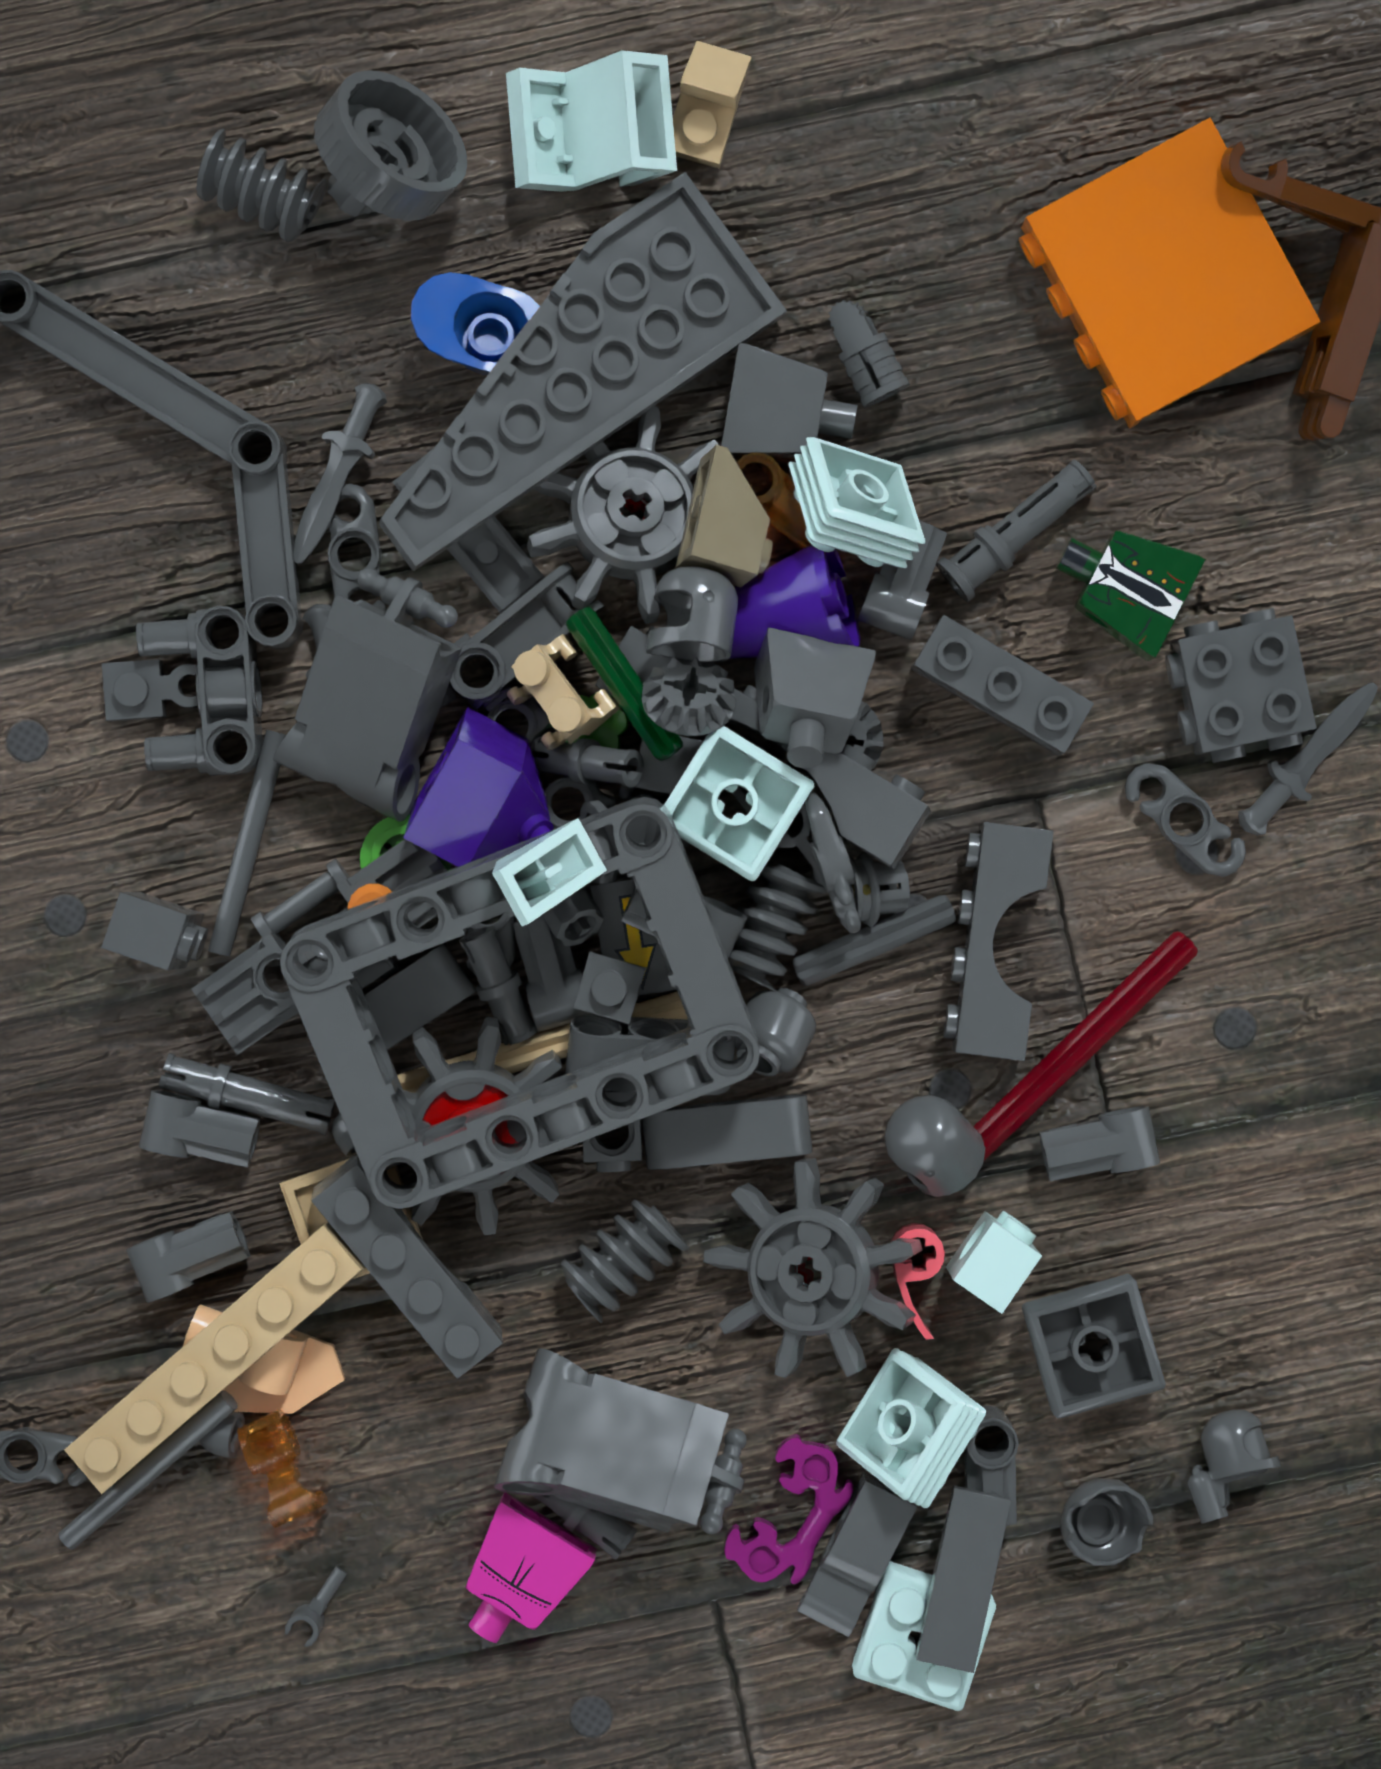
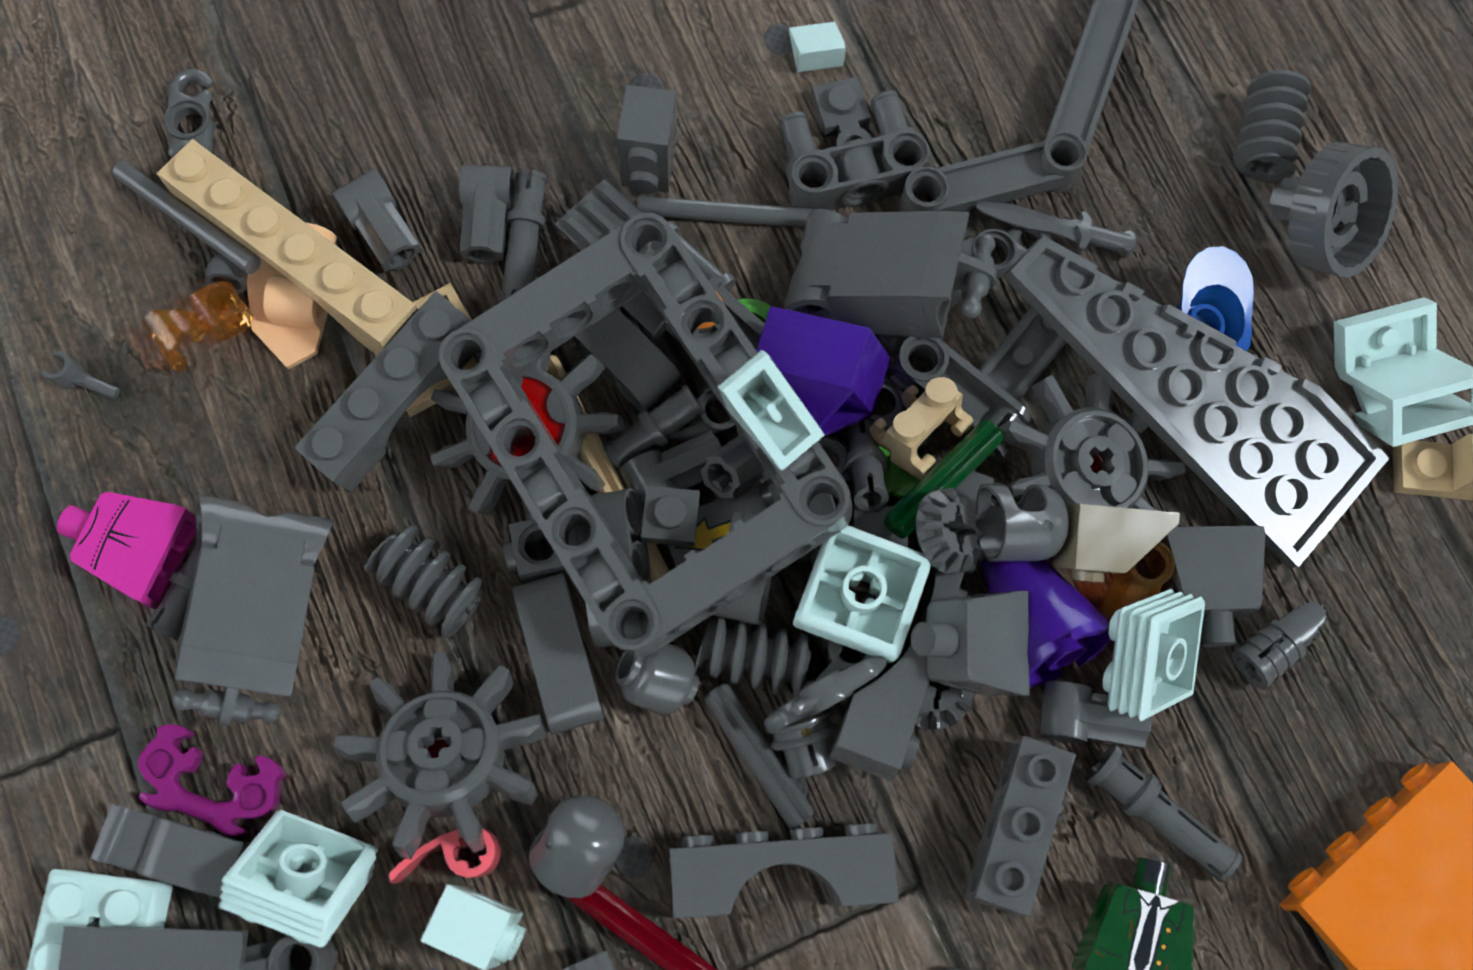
camera: 70 degrees right, 15 degrees down
(48, 701) = (817, 46): none -> light aqua slope

